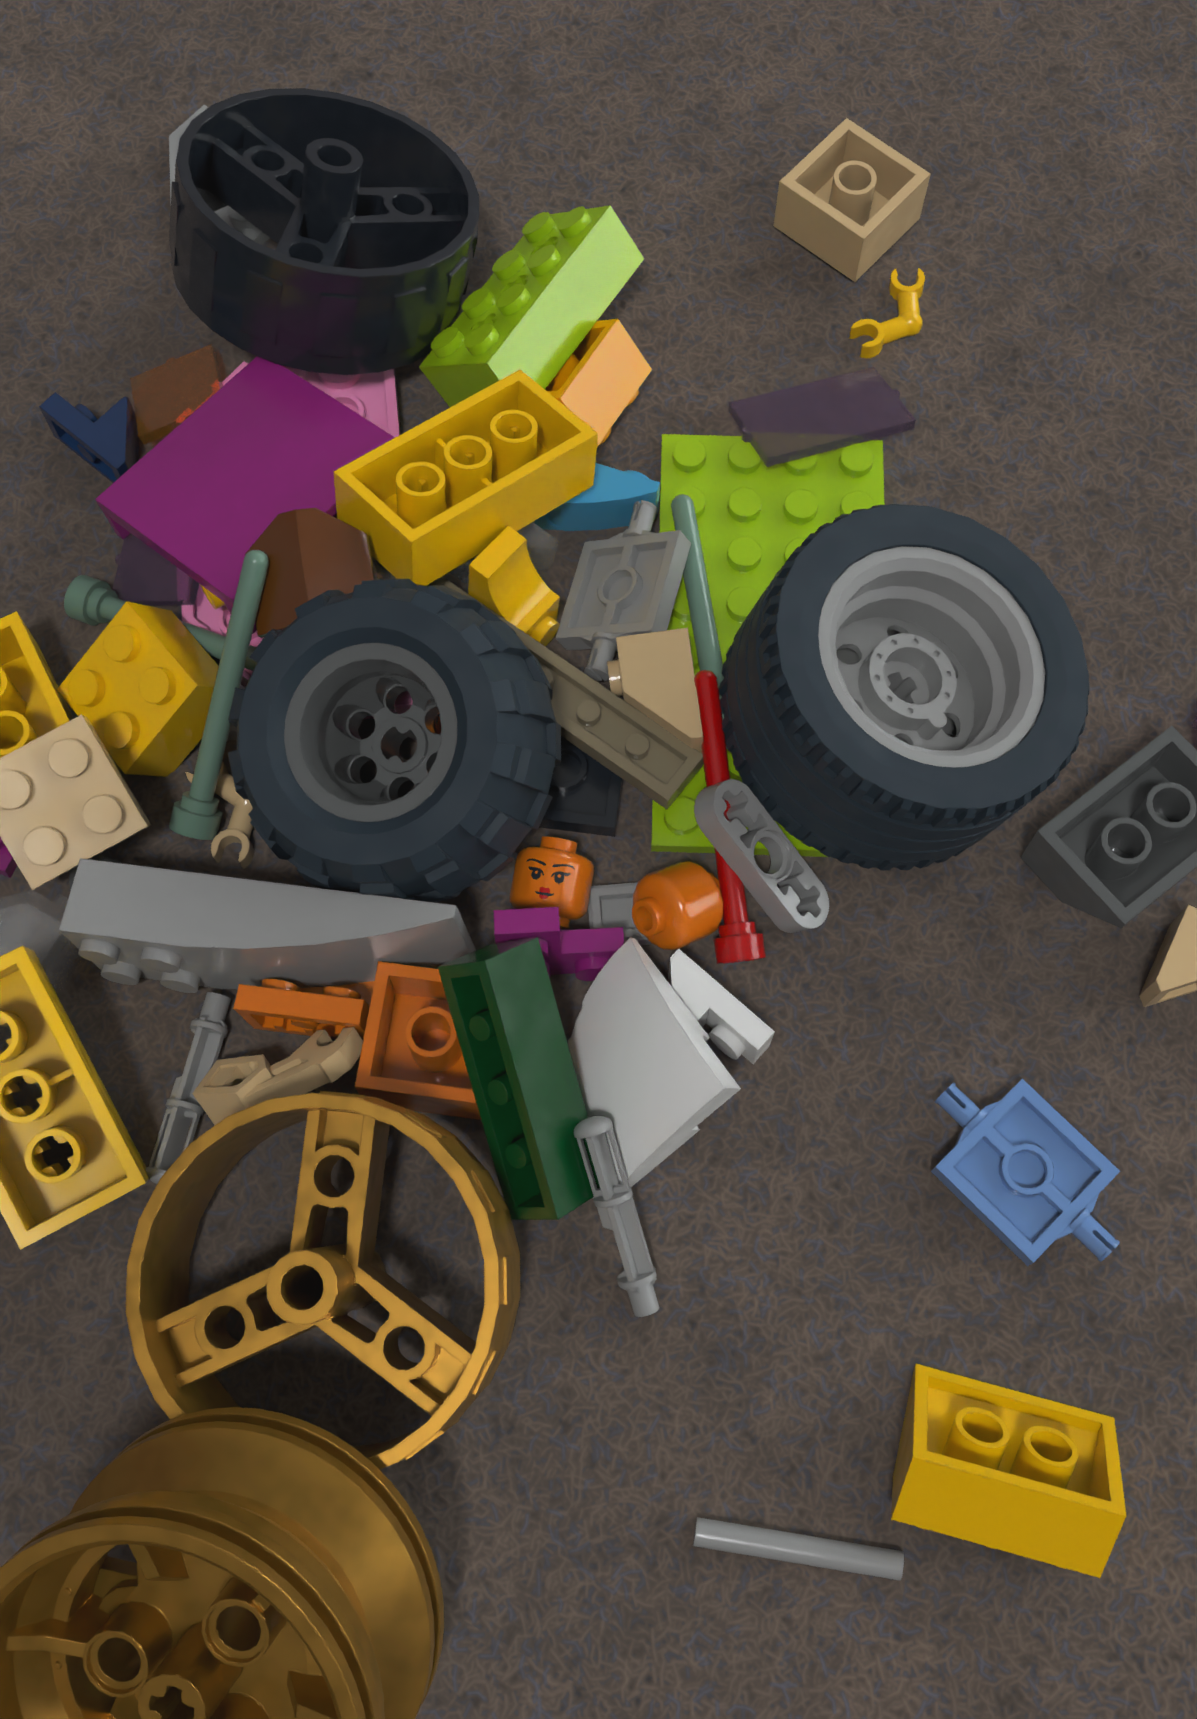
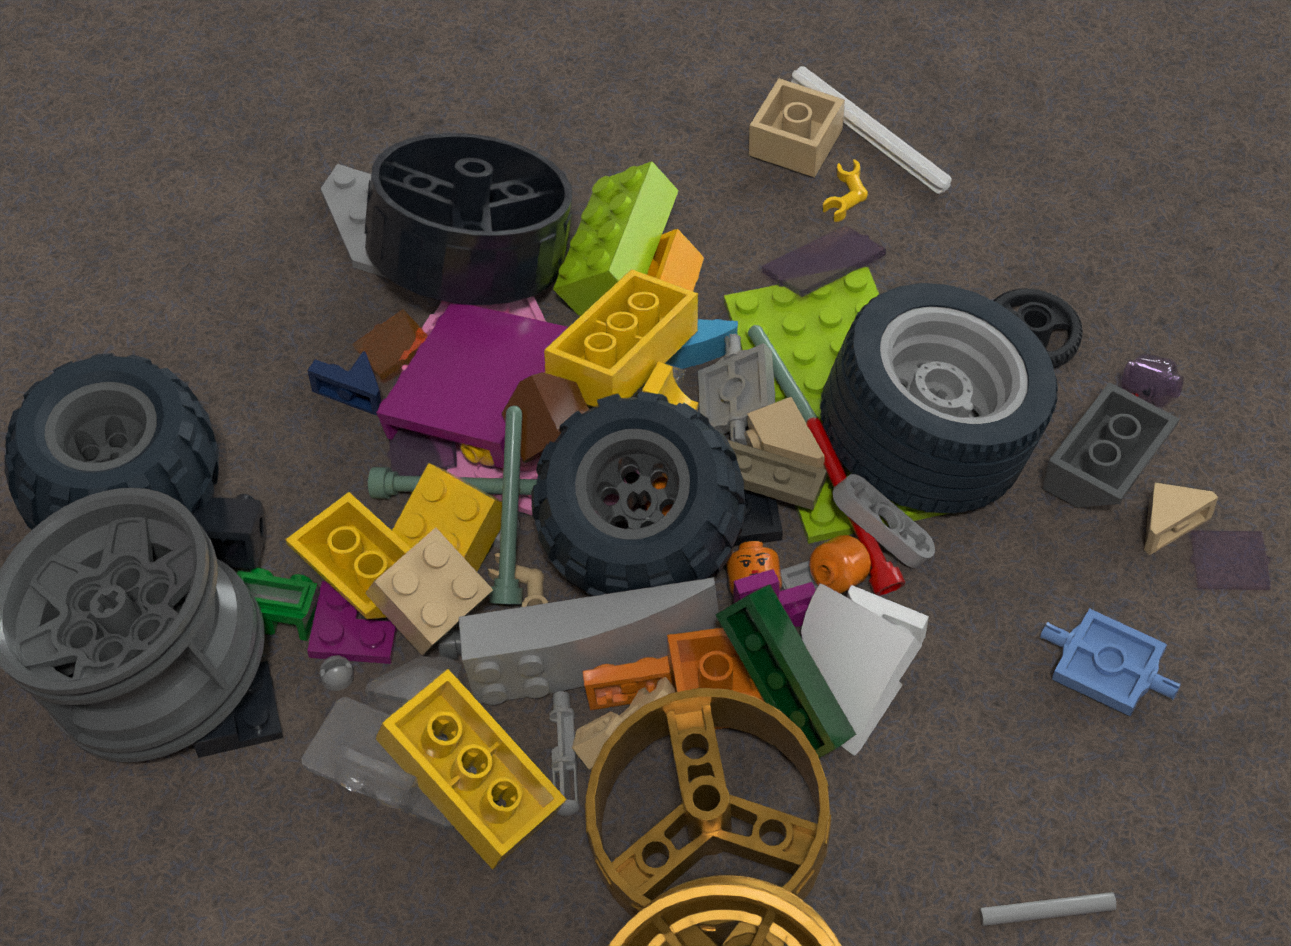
camera: 15 degrees left, 15 degrees down
(618, 1213) = (870, 744): light grey piece -> none
(966, 236) = (880, 136): none -> white axle
(1009, 1471) = (1159, 828): yellow slope -> none
(1108, 590) = (1042, 314): none -> black wheel

